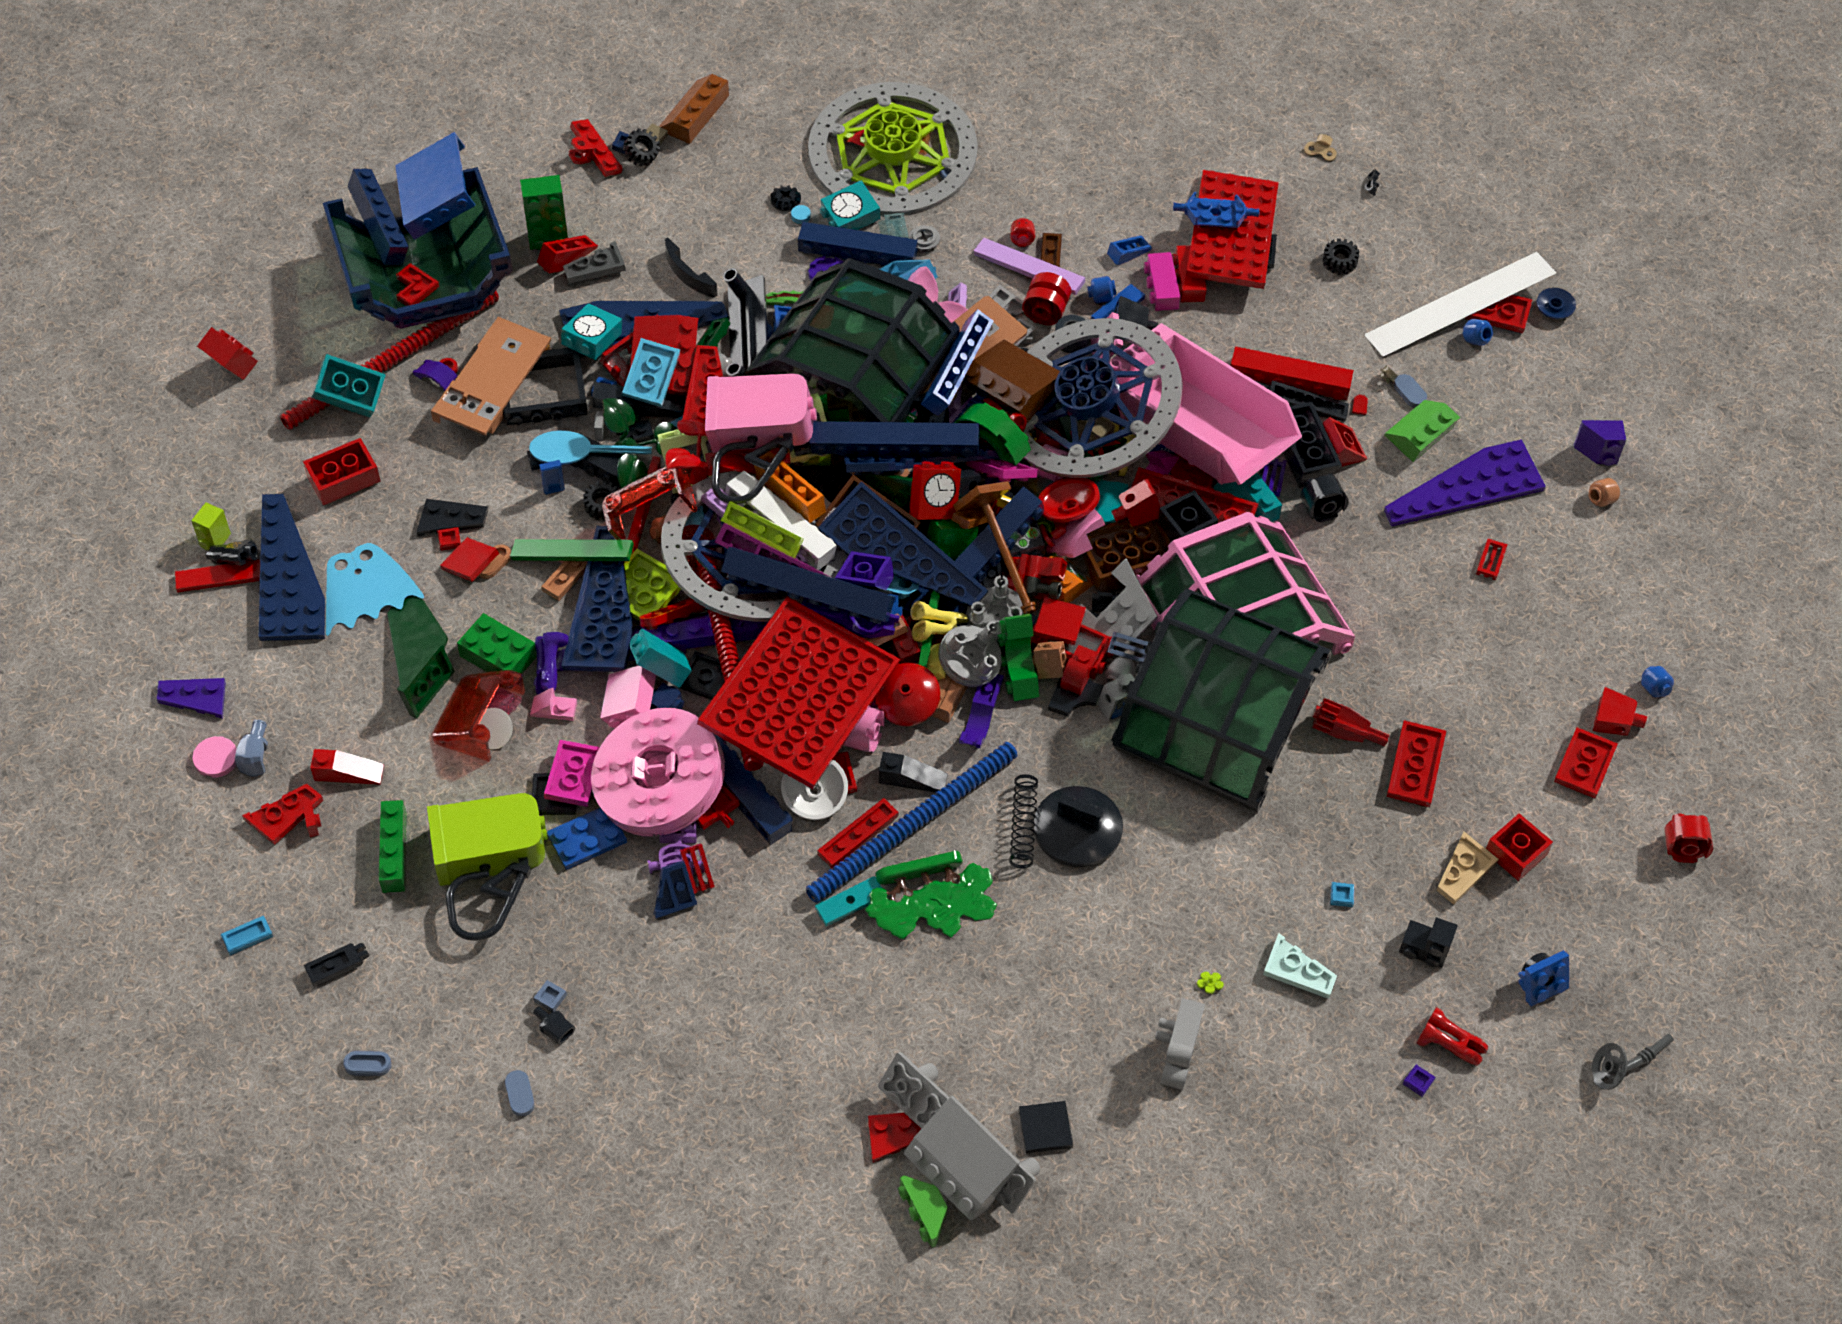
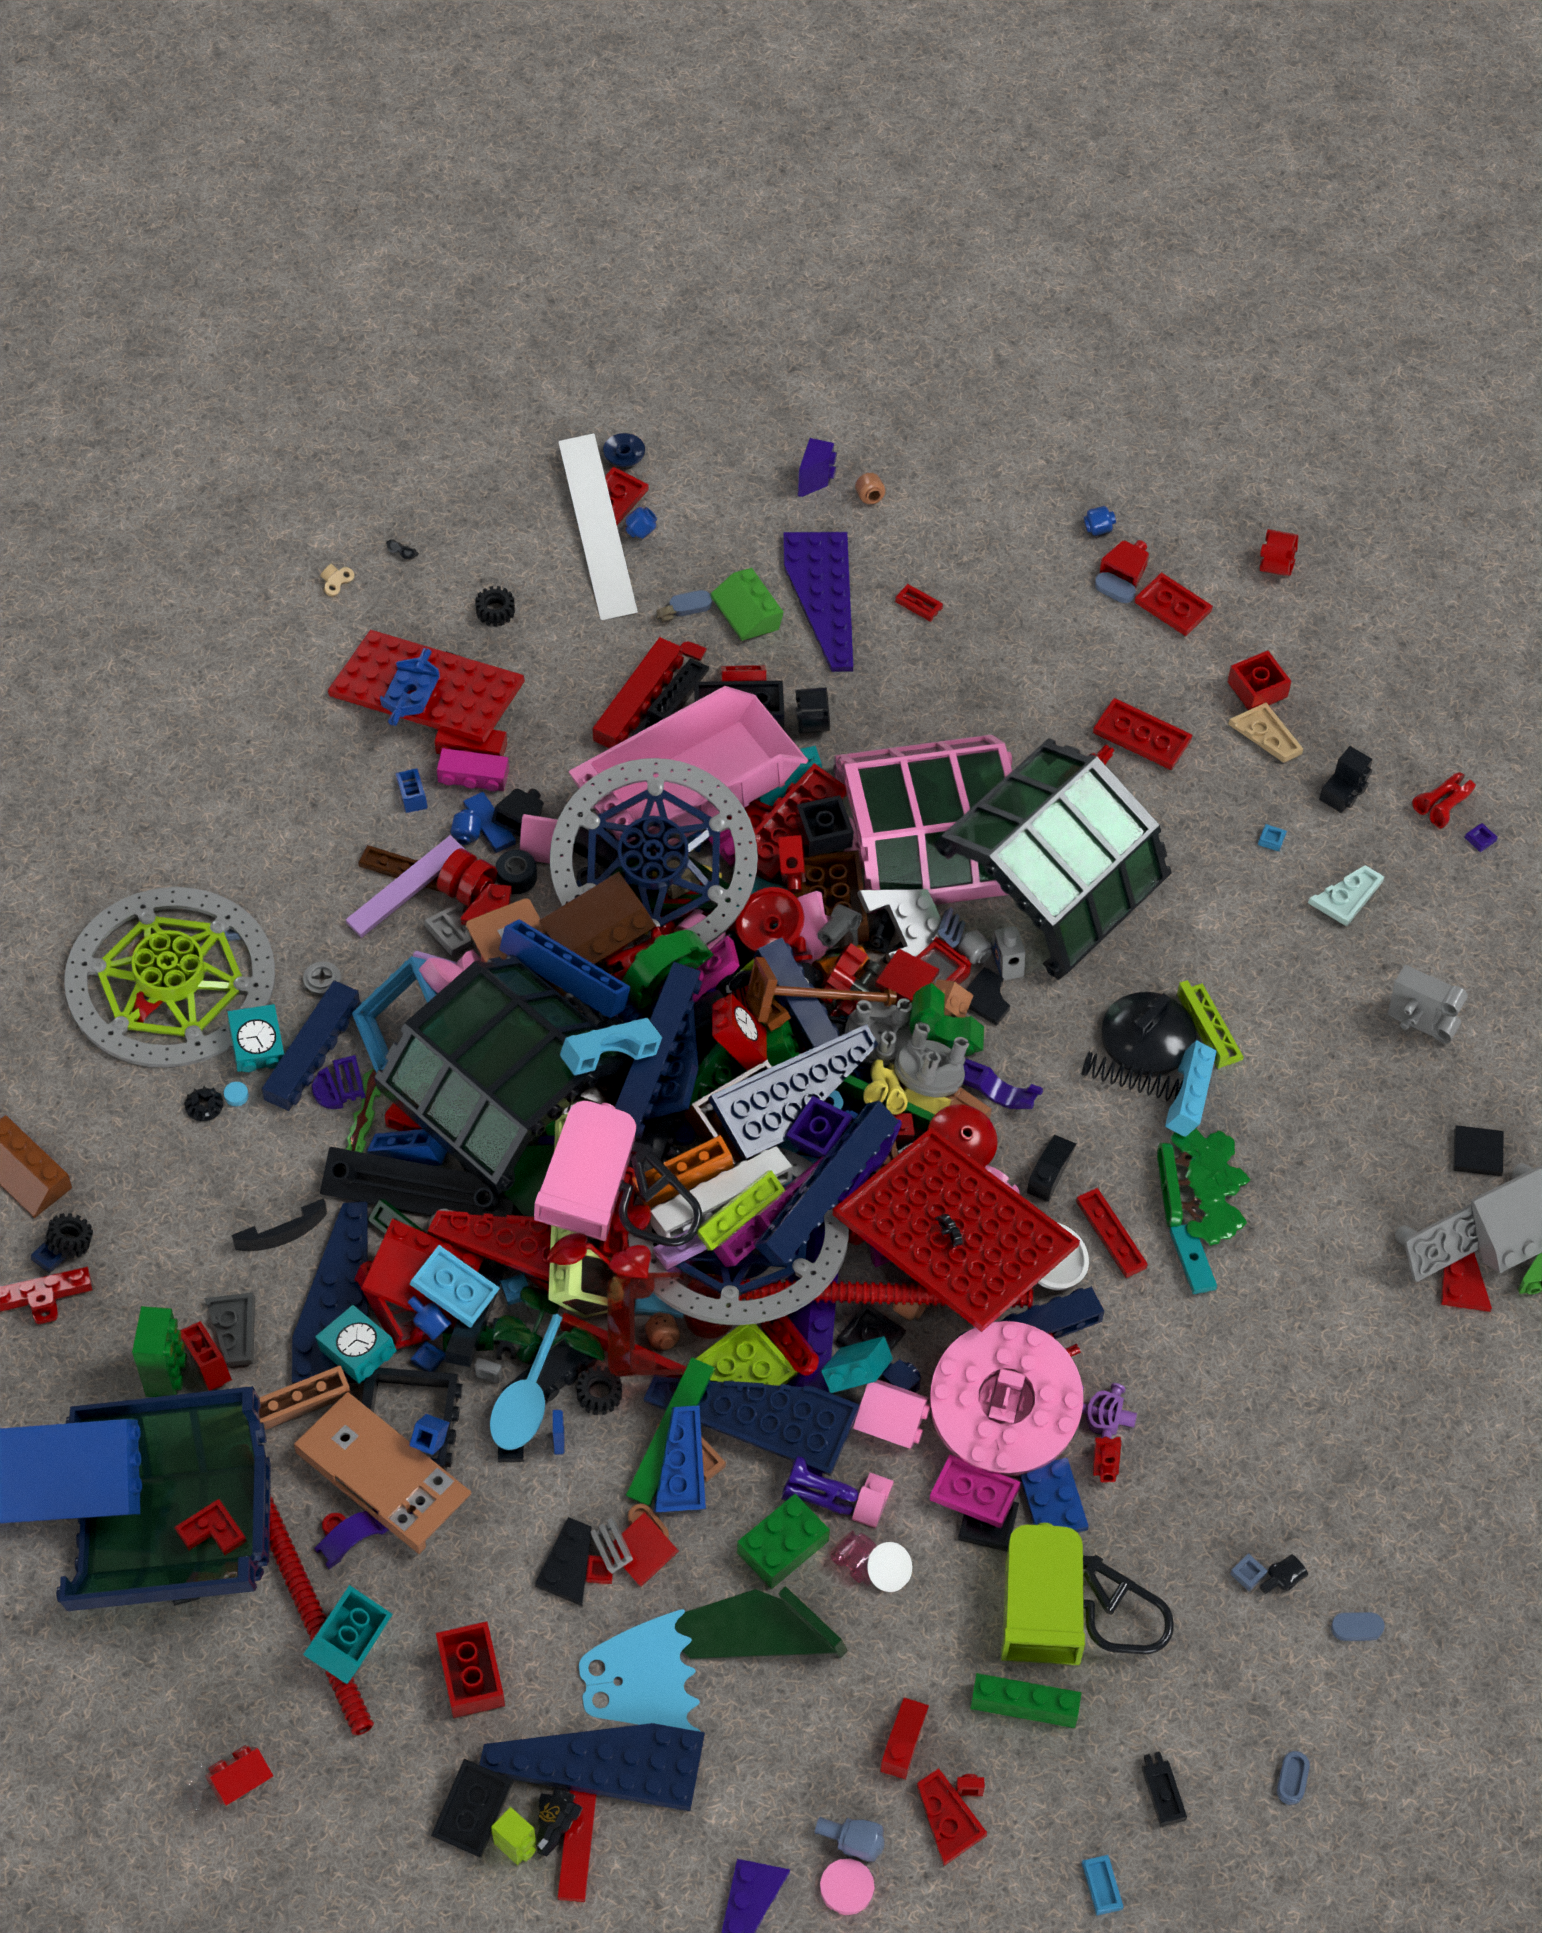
camera: 75 degrees left, 0 degrees up
(237, 499) = (472, 1808): none -> black tile
(378, 217) = (84, 1550): dark blue brick -> none
(460, 722) = (861, 1584): clear red windscreen -> none
(465, 536) = (604, 1531): none -> light grey tile
(521, 390) = (429, 1434): none -> blue brick
(533, 306) = (303, 1397): none -> nougat brick
(537, 566) = (682, 1466): none -> blue wing
(621, 369) = (429, 1318): none -> blue piece
(627, 863) = (1106, 1458): none -> red hips
(658, 131) = (41, 1219): dark tan tile -> none
(674, 890) = (1149, 1420): dark blue wing -> none
(702, 886) = (1127, 1387): red tile -> none
(787, 681) = (949, 1226): none -> black piece
(855, 371) = (633, 1038): none -> medium azure arch
(896, 225) = (296, 1001): clear light blue tile -> none
(911, 822) = (1110, 1180): blue piece -> none
(1022, 232) = (354, 879): red head -> none
(1023, 863) = (1188, 1106): none -> medium azure arch
(1031, 319) = (490, 899): none -> red wing
(1078, 669) = (970, 977): red brick -> none
(1085, 550) = (841, 928): none -> dark grey piece
(1103, 866) = (1205, 1027): none -> lime fence
(1210, 982) = (1346, 971): lime plant -> none
(1544, 976) = (1401, 704): blue piece -> none
(1585, 711) = (1115, 587): none -> sand blue tile
(1616, 1067) = (1498, 682): dark grey dish -> none

